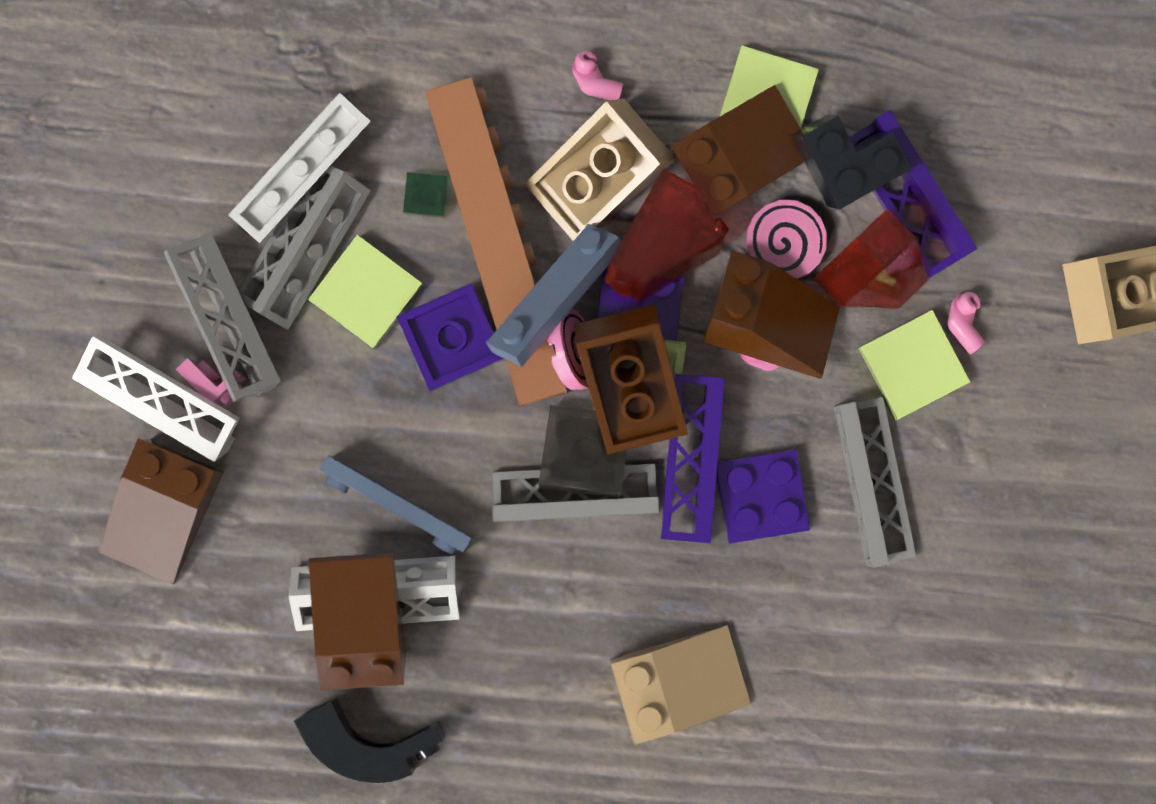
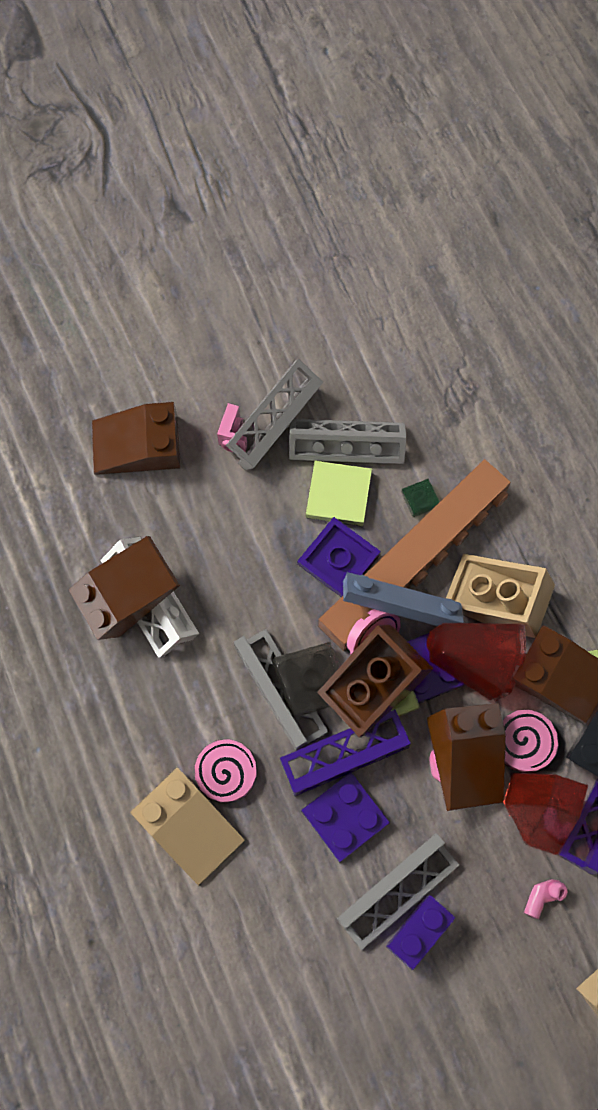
camera: 70 degrees right, 15 degrees down
(150, 402) = (198, 402): white fence -> none
(299, 167) = (393, 411): white fence -> none
(344, 477) = (210, 619): sand blue plate -> none
(360, 759) = (35, 637): black arch -> none
(591, 80) = (554, 559): bright pink arm -> none
(637, 607) = (225, 771): none -> bright pink tile
(914, 365) = (493, 876): yellowish green tile -> none
(933, 482) = (420, 932): none -> dark purple brick

